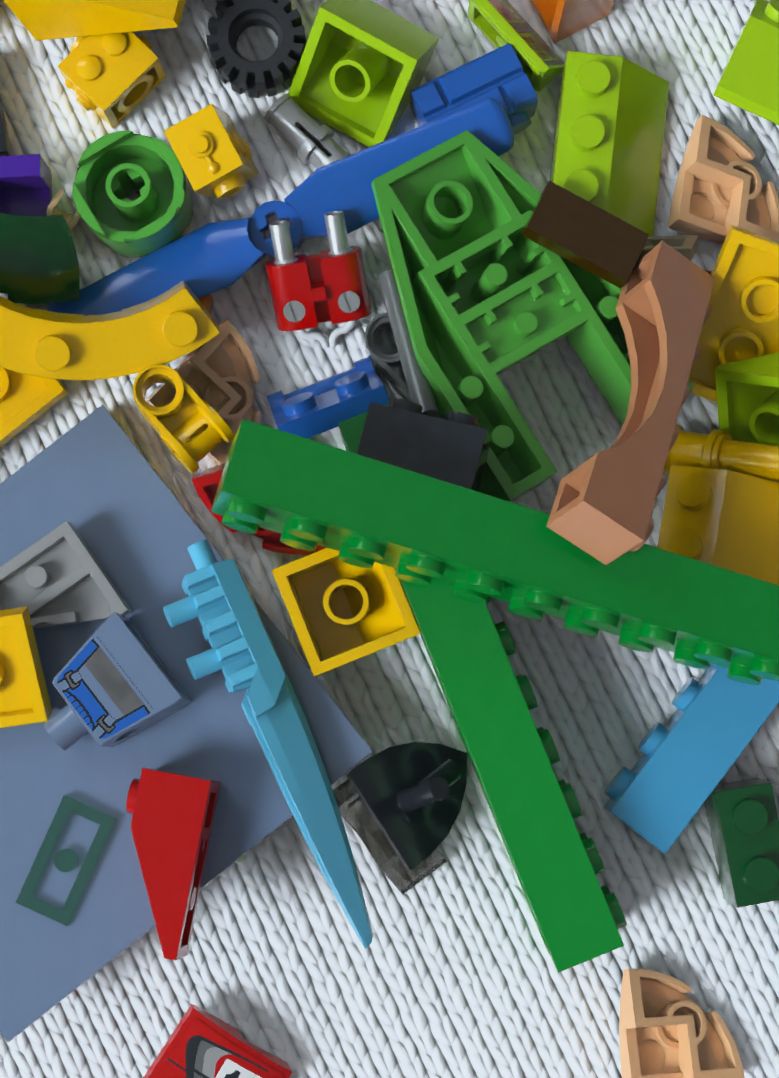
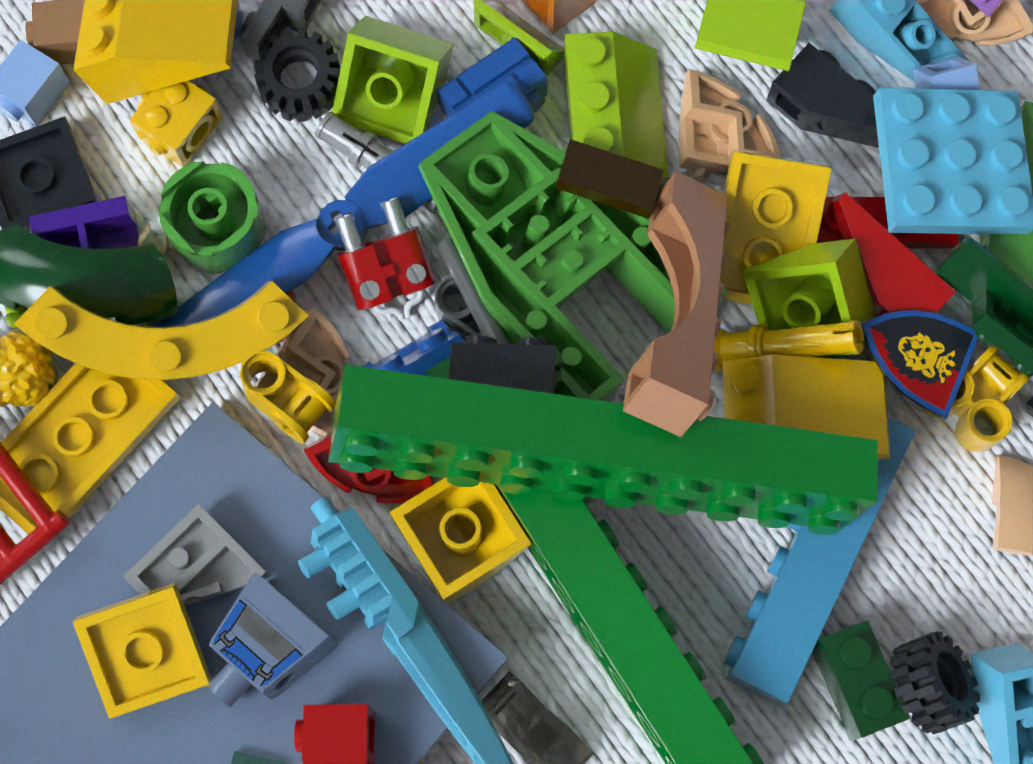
camera: 15 degrees left, 10 degrees down
(212, 153) = (275, 169): yellow head -> none
(413, 795) = (552, 693): black shield -> none

